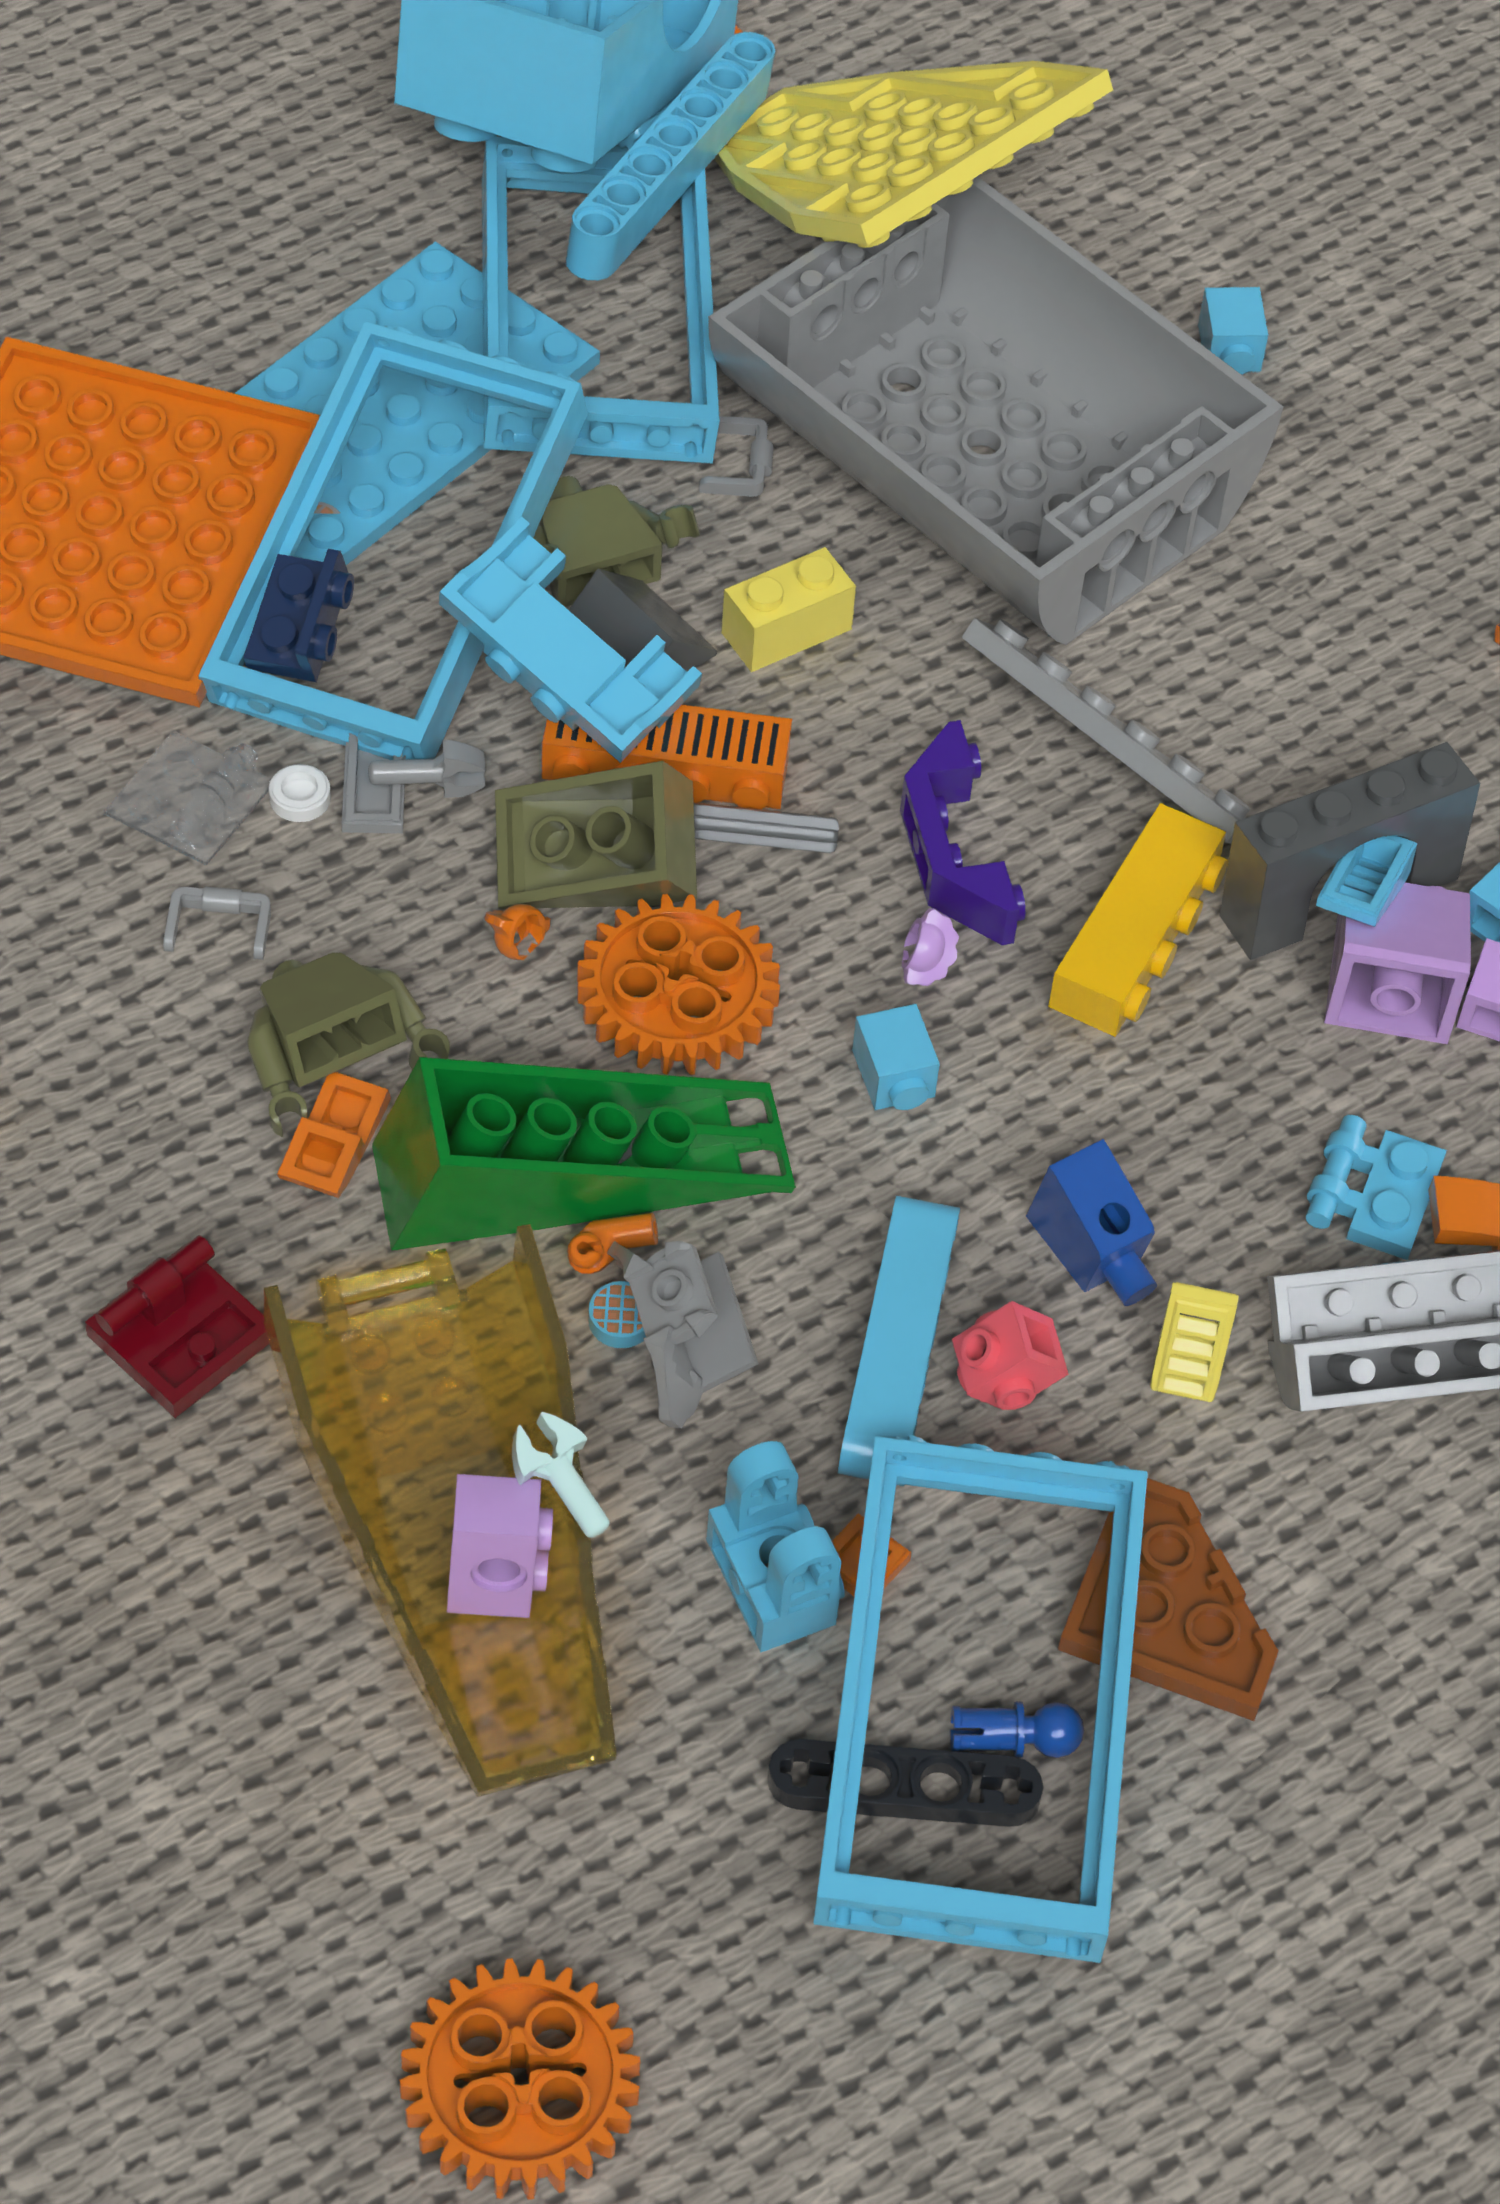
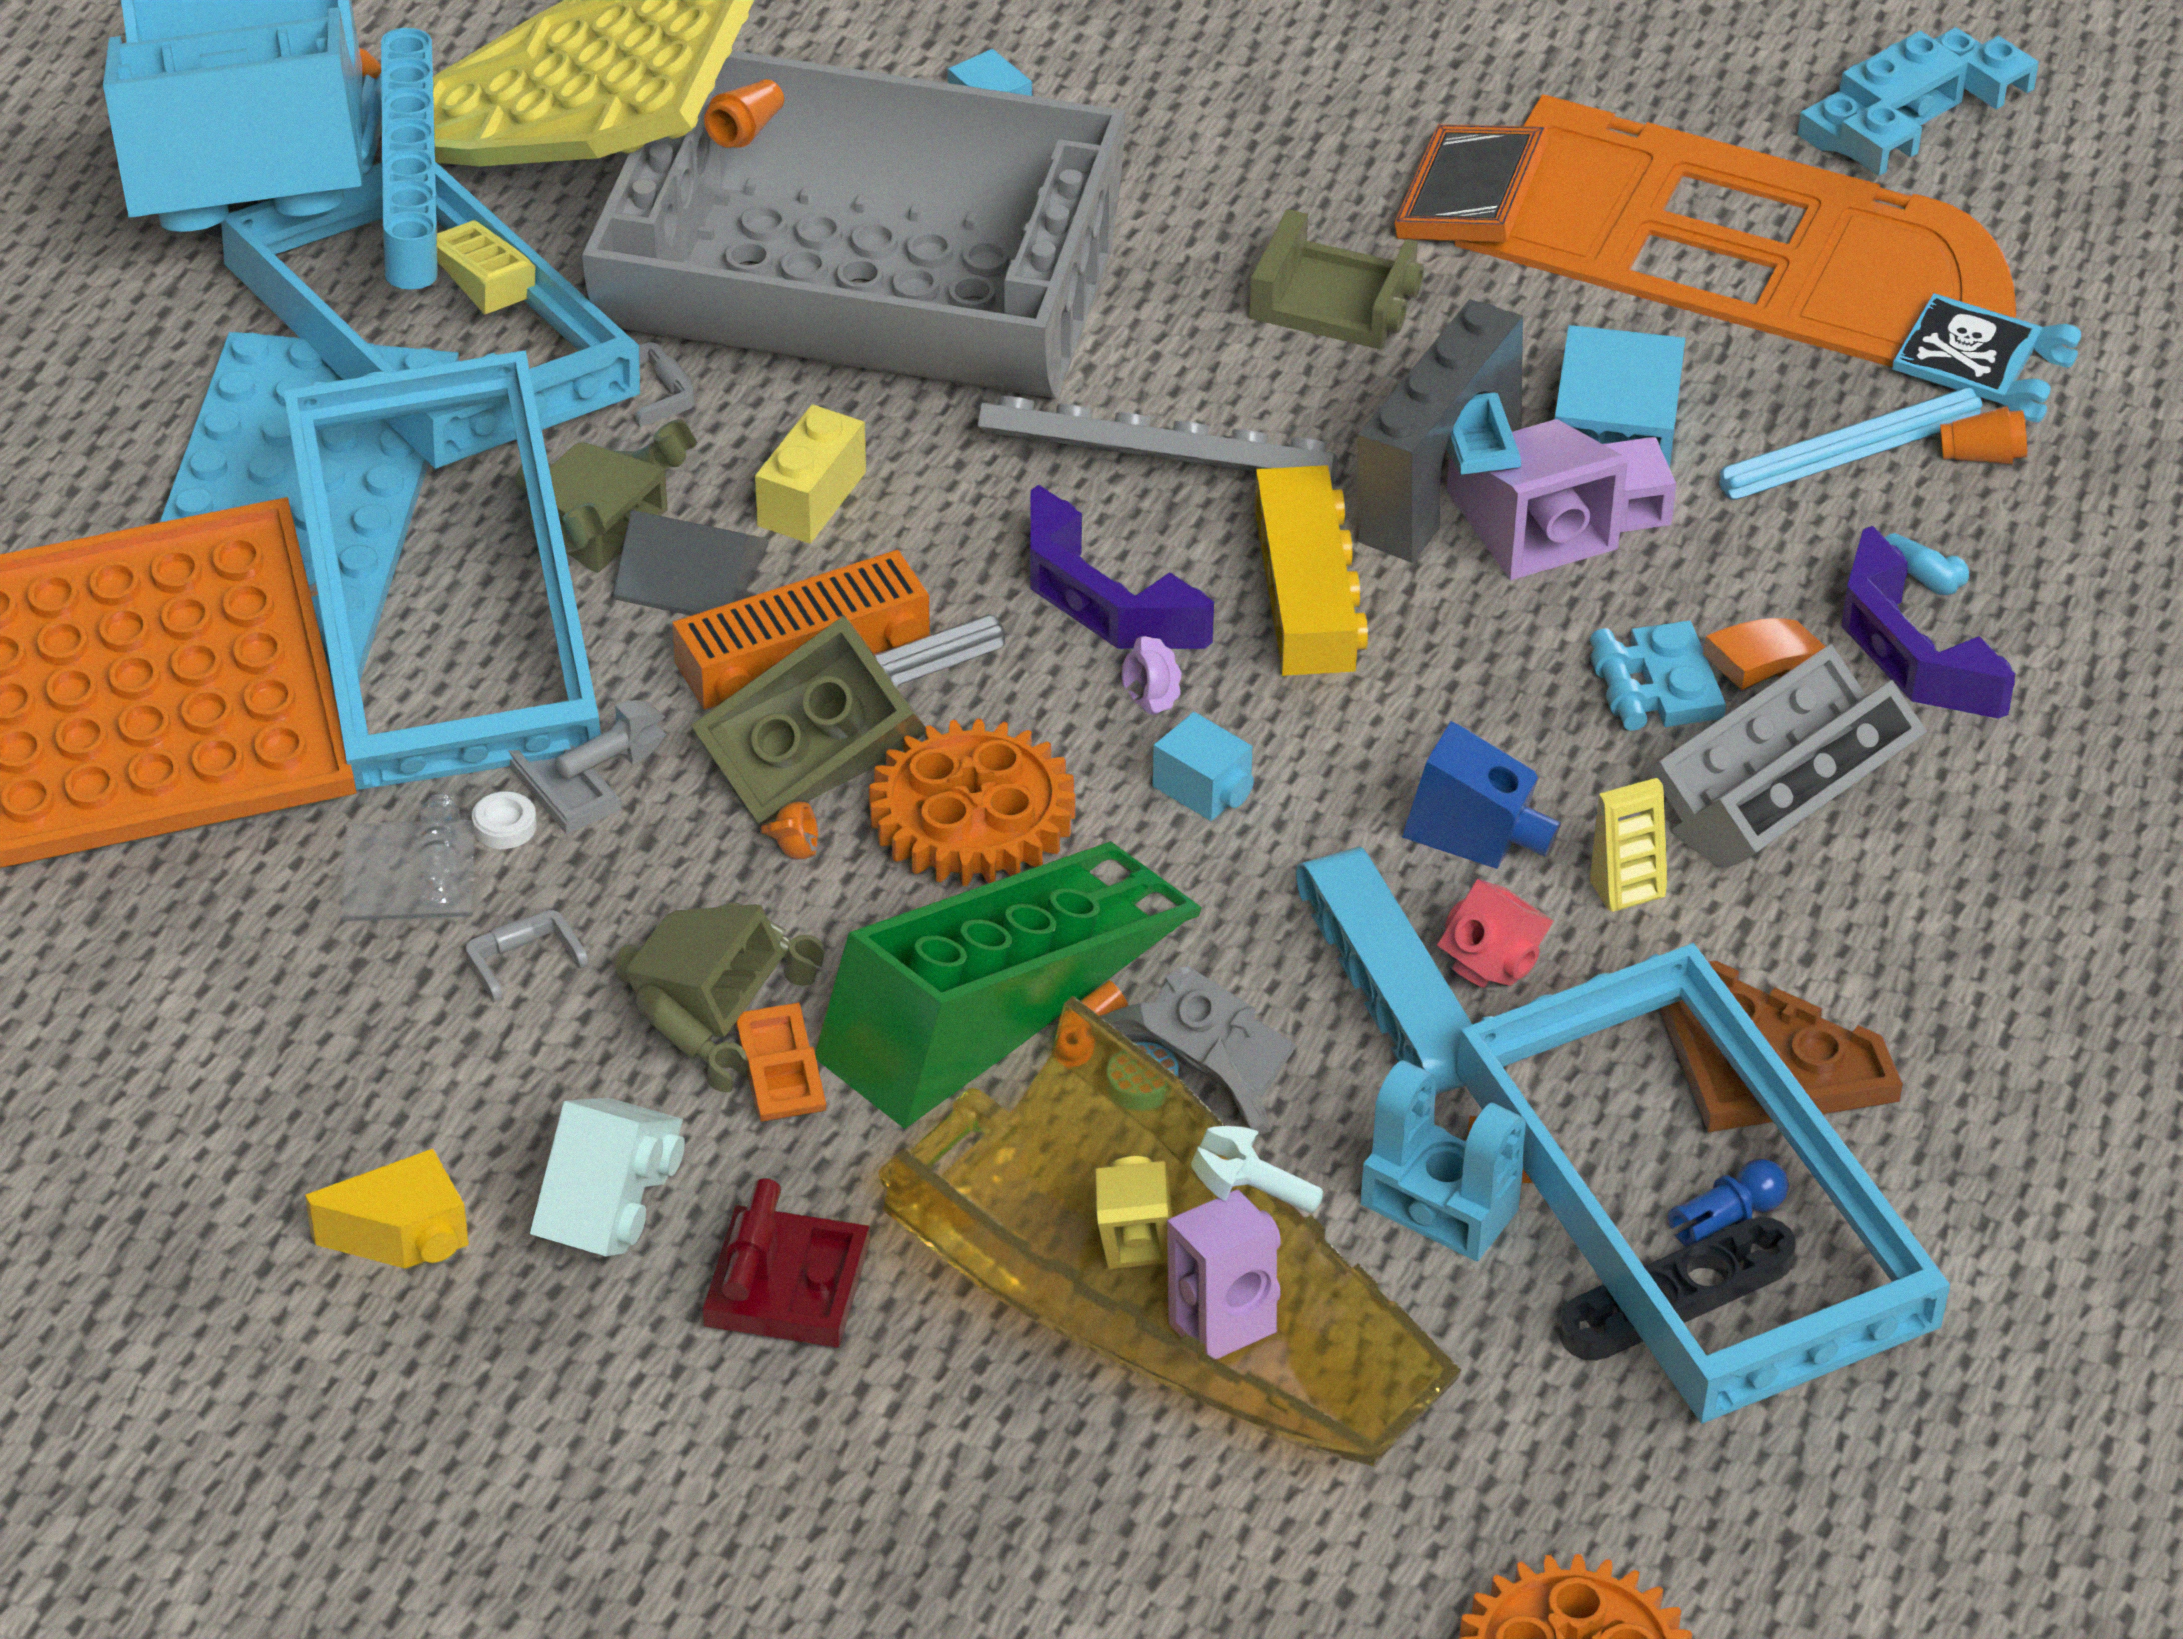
camera: 30 degrees left, 10 degrees down
(95, 1148) = (600, 1170): none -> light aqua brick
(299, 616) = (408, 662): dark blue bracket -> none
(466, 1435) = (1133, 1211): none -> light yellow slope
(555, 653) = (673, 578): medium azure bracket -> none
(661, 309) = (492, 274): none -> light yellow slope
(939, 250) = (742, 113): none -> orange cone
(1389, 658) = (1331, 287): none -> olive panel

